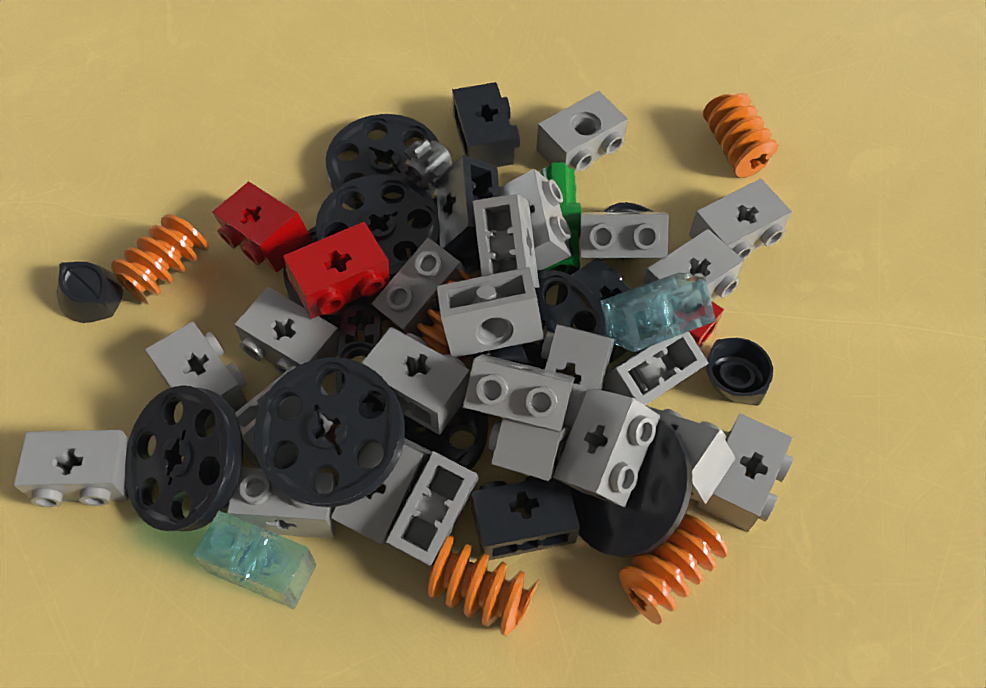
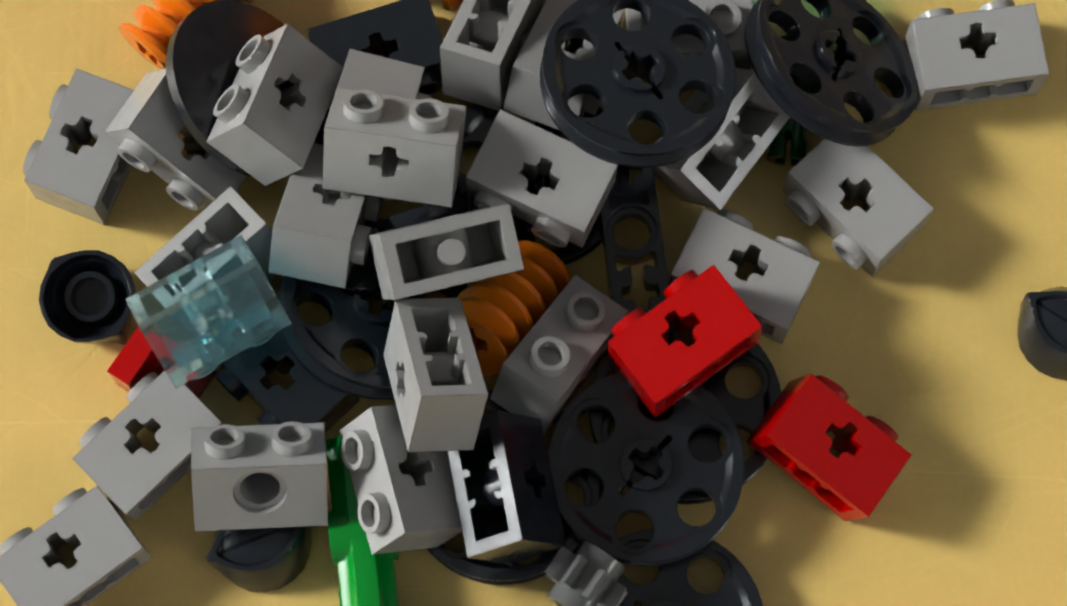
camera: 175 degrees right, 15 degrees up
(157, 255) = (968, 381): orange piece -> none

